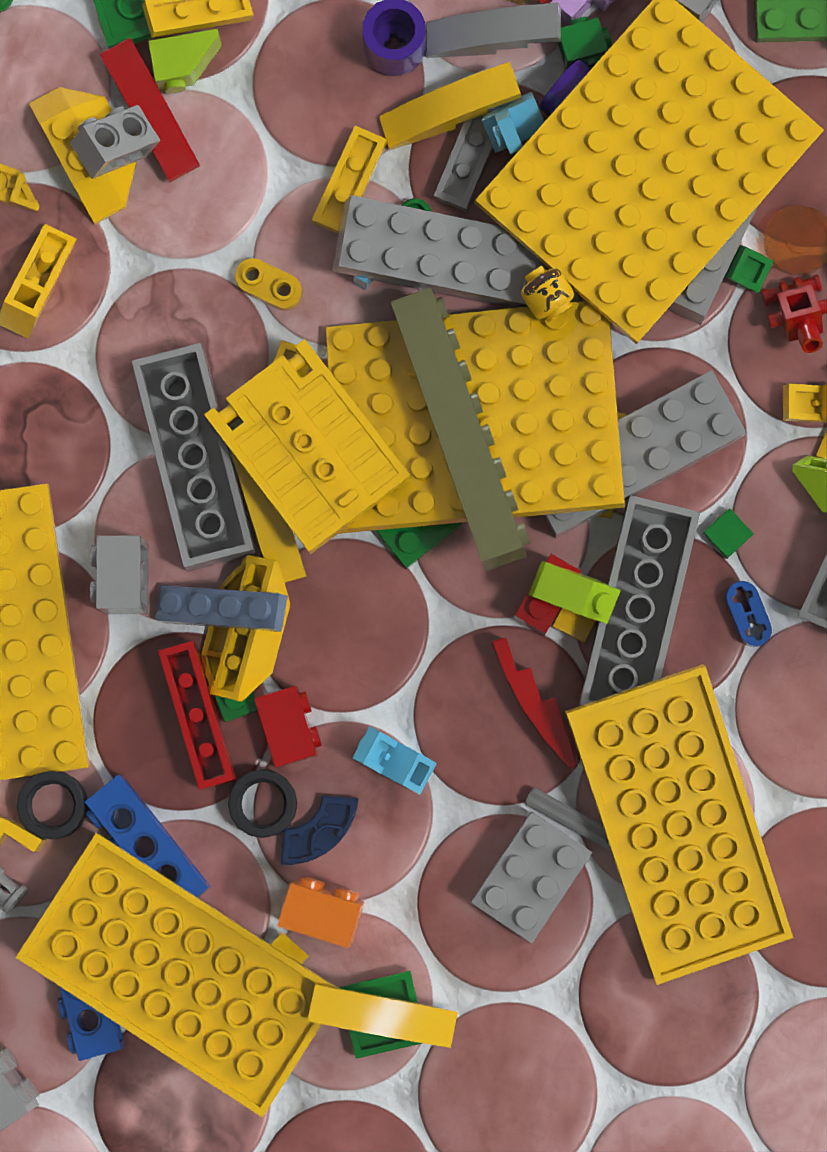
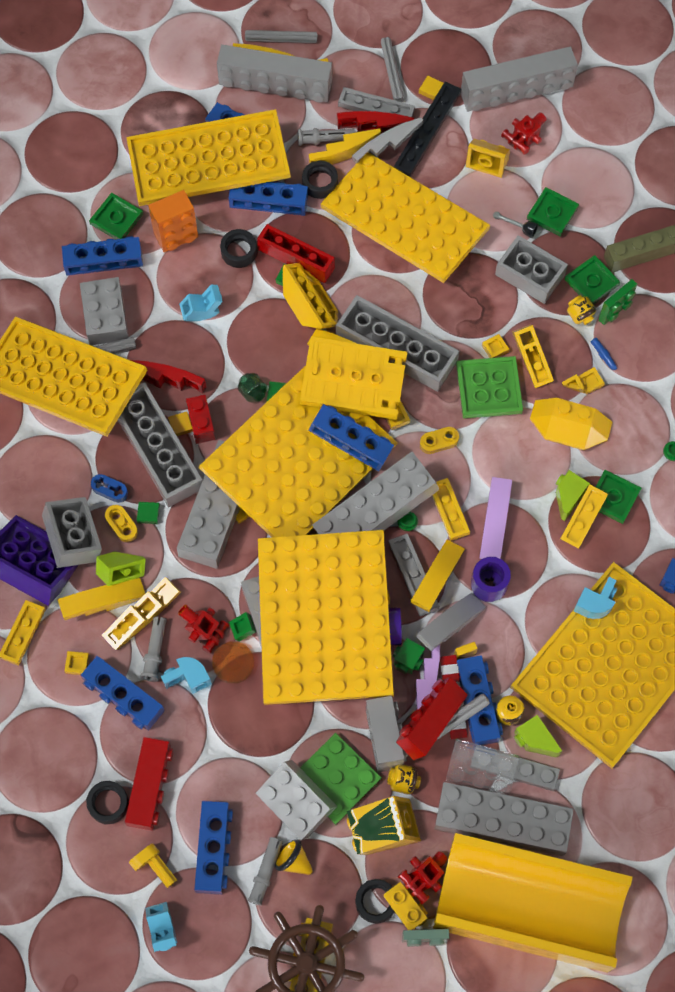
camera: 130 degrees right, 15 degrees down
(69, 341) = (495, 347): none -> yellow tile
(114, 140) = (553, 425): light grey brick -> none
(120, 575) = (378, 274): light grey brick -> none
(135, 291) = (489, 387): none -> bright green plate
(140, 89) = (560, 460): red slope -> none
(221, 608) = (326, 295): sand blue plate -> none
(287, 726) = (257, 282): red brick -> none
(305, 112) = (495, 518): none -> lavender slope
(321, 832) = (205, 260): dark blue tile -> none
(377, 318) = (355, 447): none -> blue brick
(382, 1016) = (113, 209): yellow slope -> none
(438, 577) = (252, 387): none -> clear green head
(459, 430) = (298, 435): olive brick -> none
(507, 995) = (110, 261): none -> blue brick
(513, 123) = (402, 588): medium azure brick -> none
(547, 293) = (315, 522): yellow head -> none
(574, 592) = (187, 418): lime slope -> none
(776, 548) = (121, 524): none -> yellow plate

